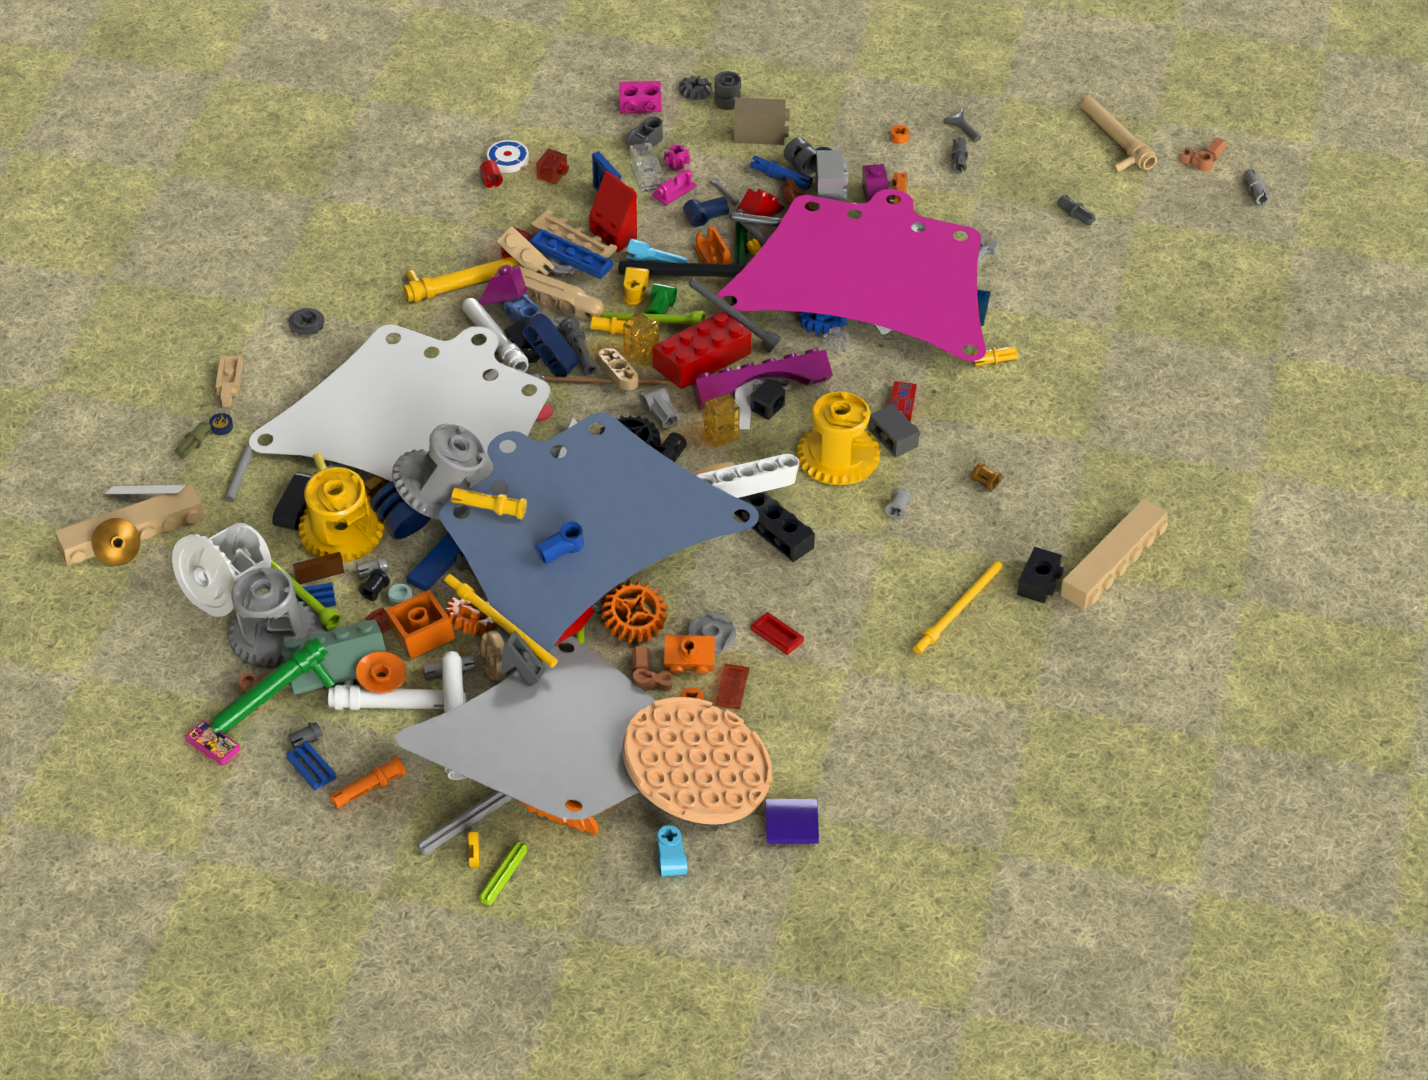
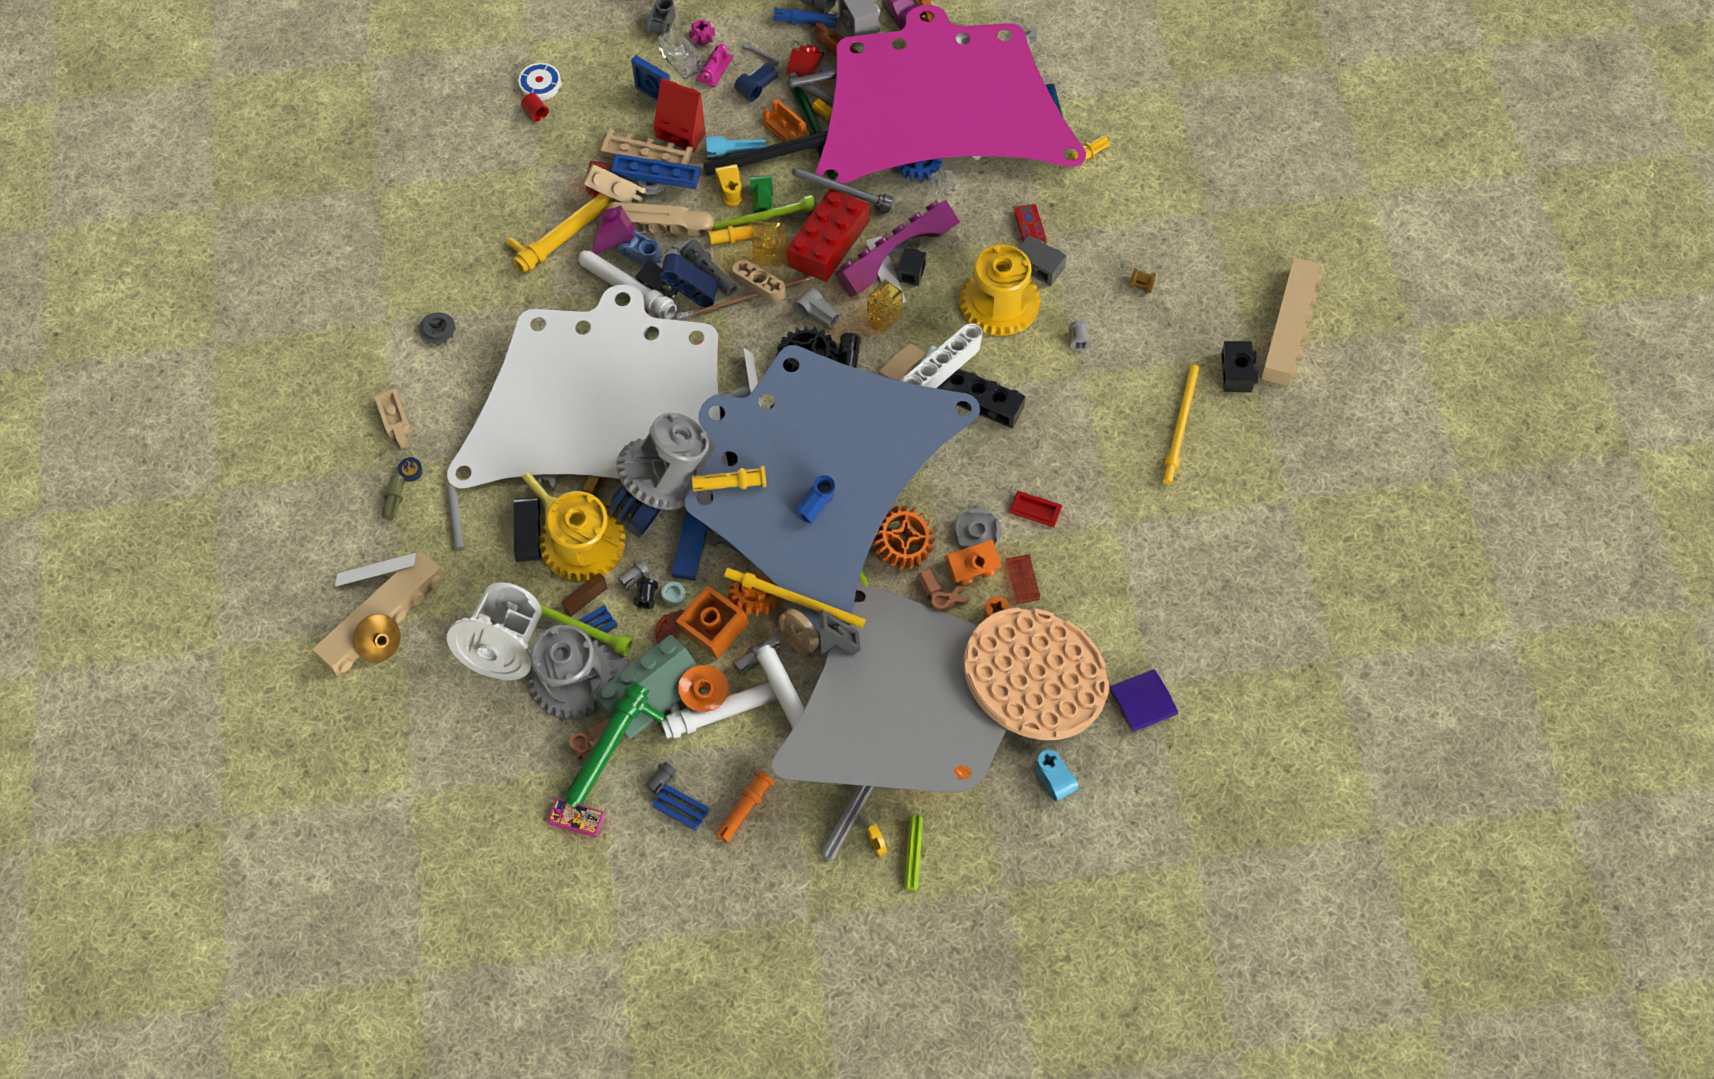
camera: 20 degrees left, 15 degrees up
(552, 166) = (589, 80): clear red brick -> none

